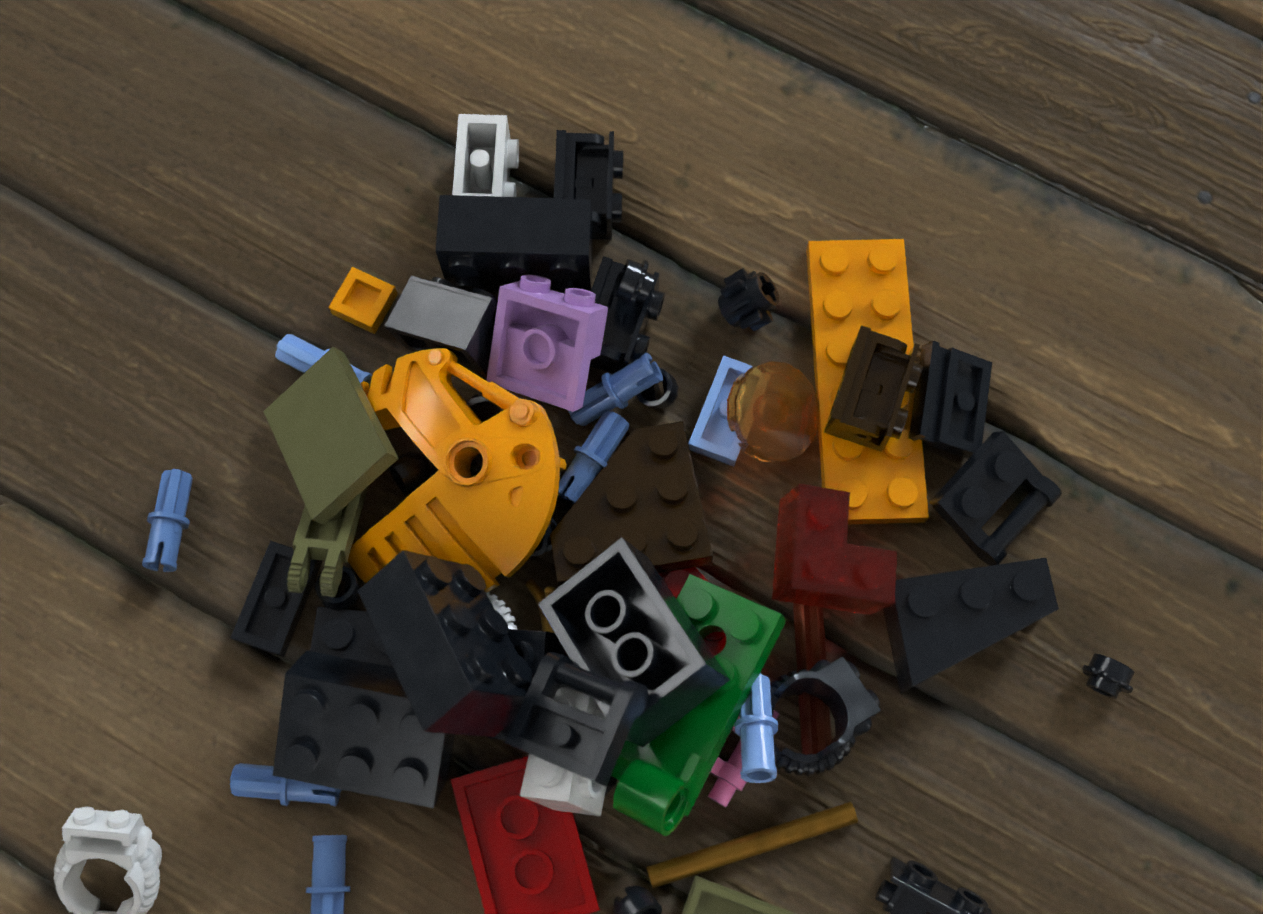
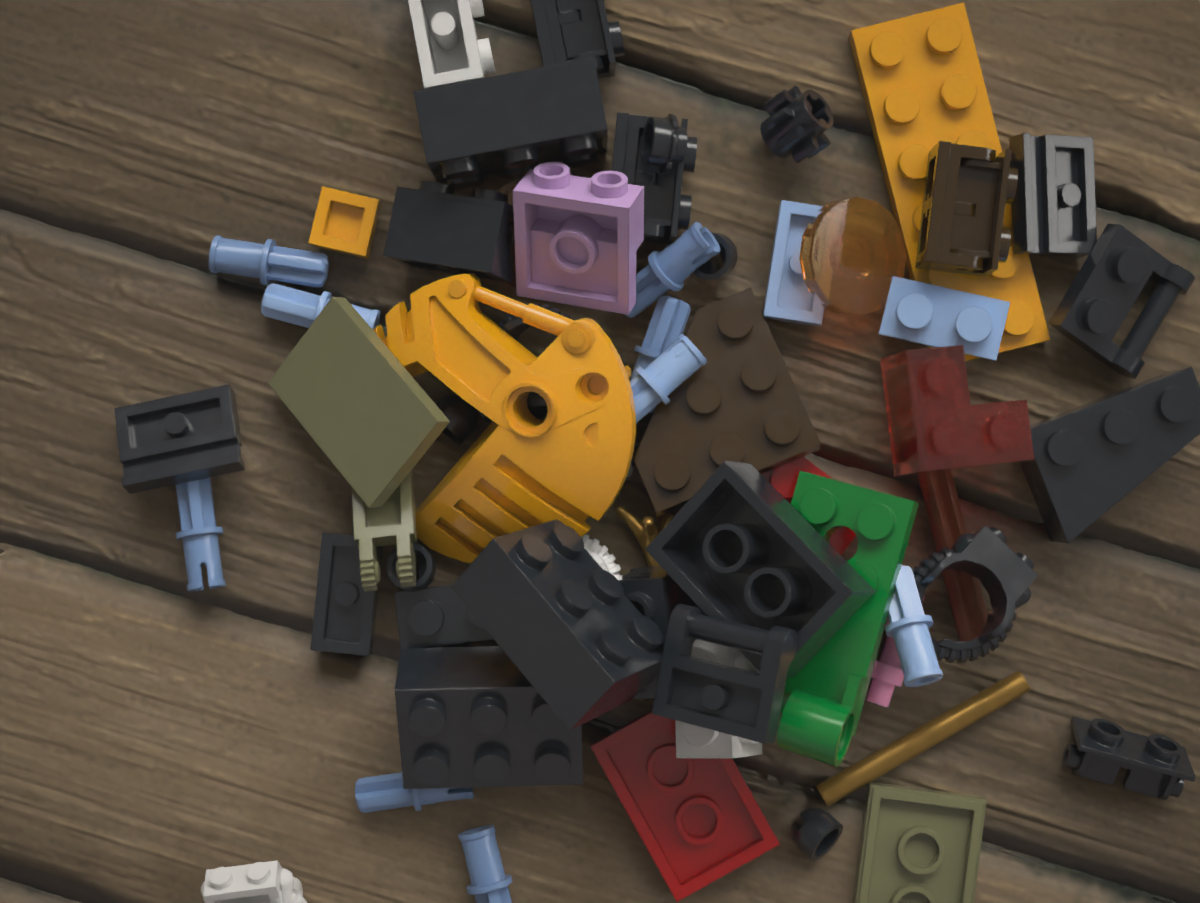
camera: 10 degrees left, 15 degrees up
(175, 438) = (179, 439): none -> black plate
(292, 317) = (268, 262): none -> medium blue axle
(591, 469) = (665, 375): none -> light blue axle
(836, 468) = (944, 317): none -> light blue plate

